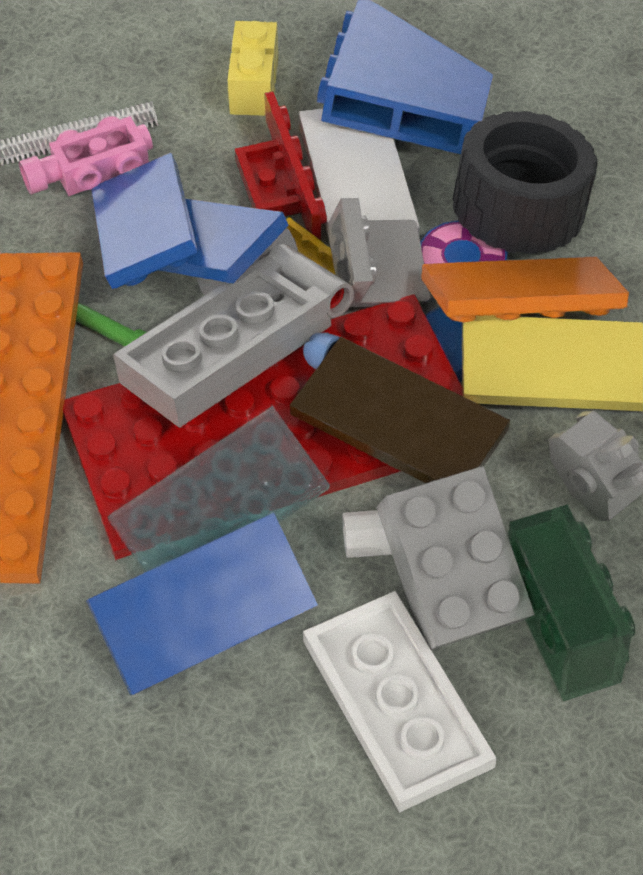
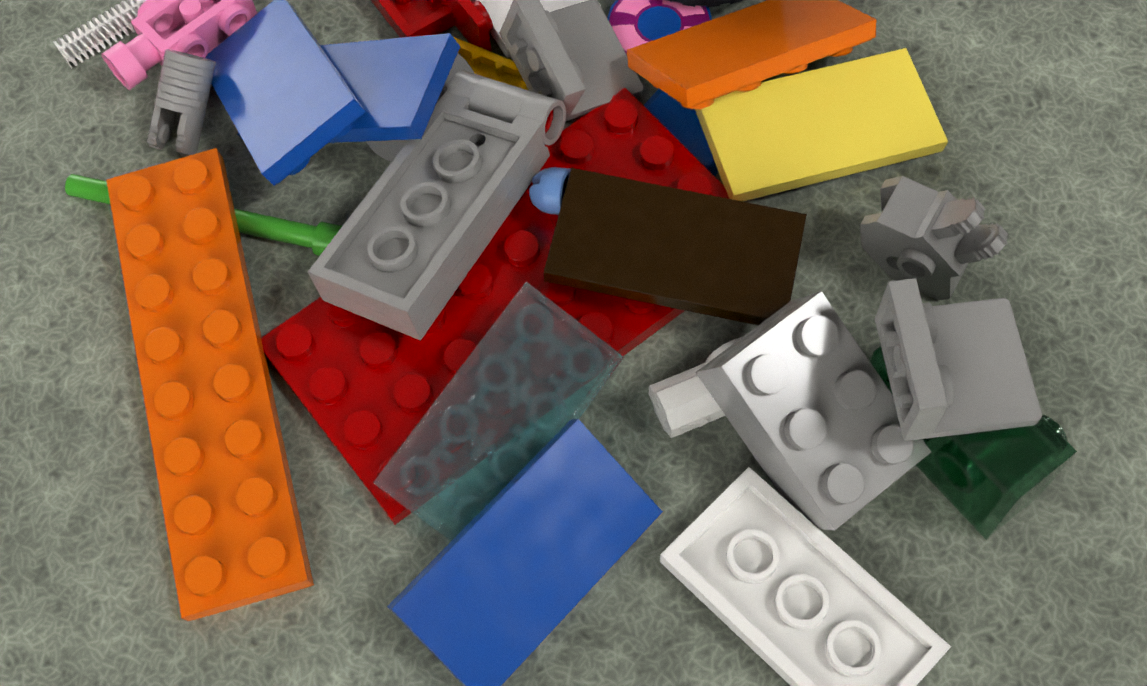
camera: 15 degrees left, 10 degrees up
(72, 205) = (181, 89): none -> light grey hinge
(560, 542) = (954, 365): none -> light grey bracket

